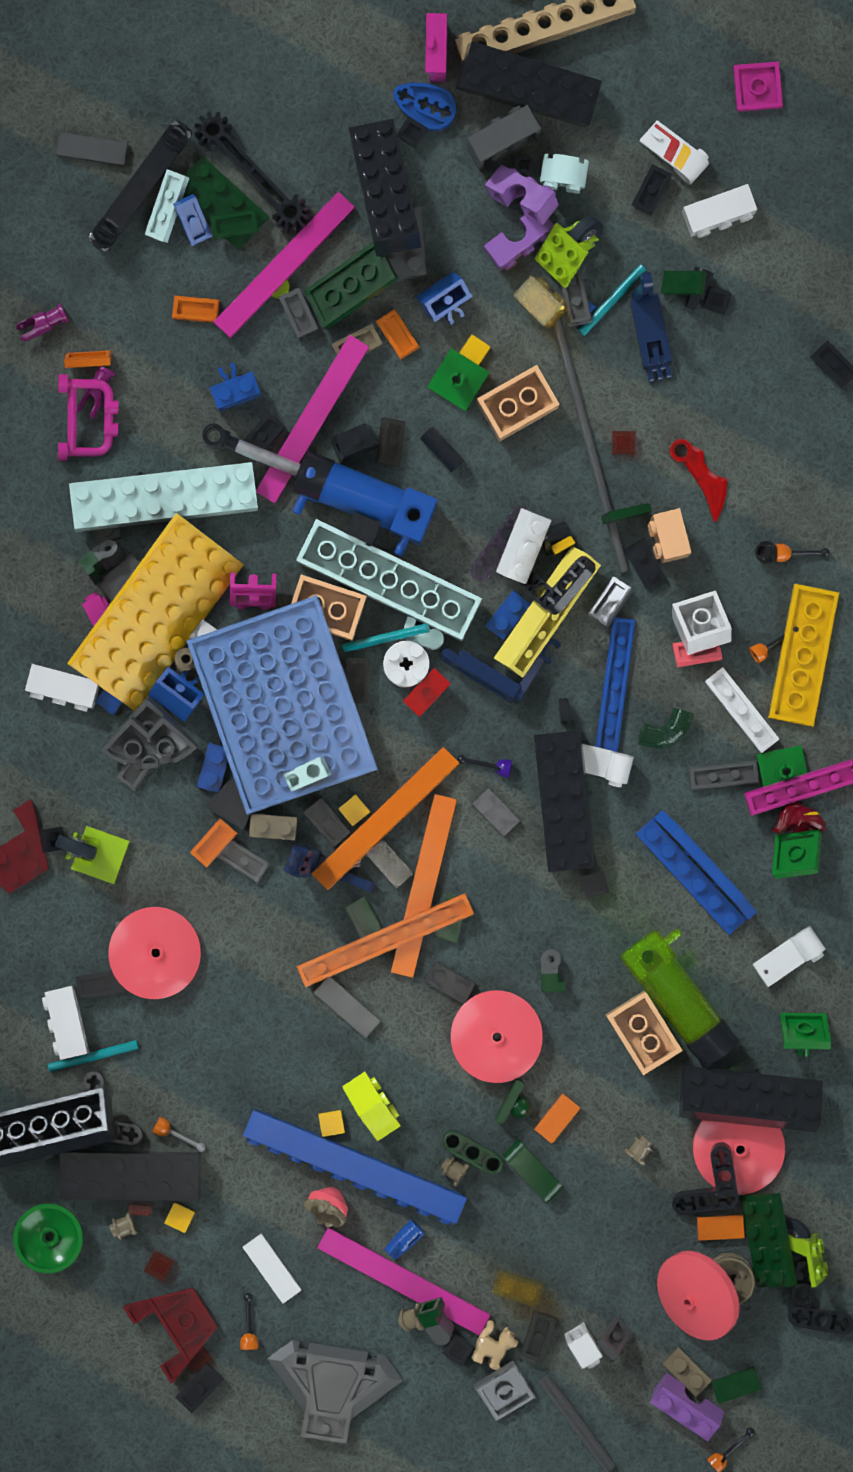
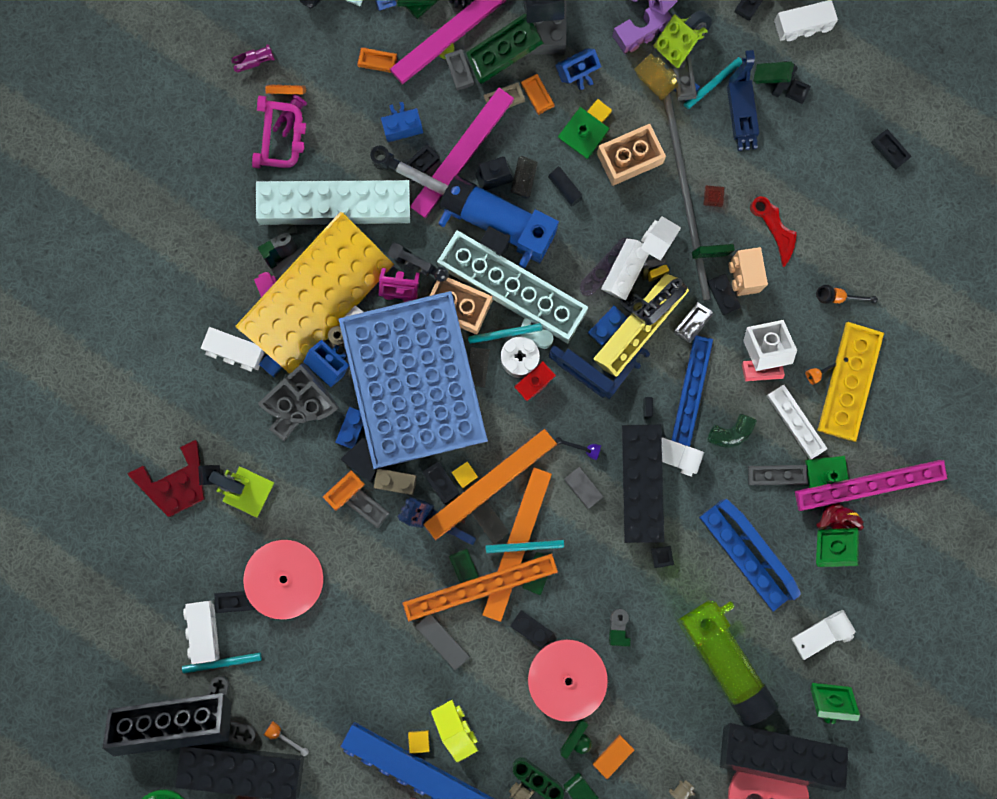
camera: 10 degrees right, 5 degrees down
(254, 554) = (406, 258): none -> black plate
(307, 773) = (427, 438): light aqua leg -> none
(431, 888) = (524, 546): none -> teal bar
(559, 505) = (659, 237): none -> white brick
(643, 1032) = (695, 689): light nougat brick -> none

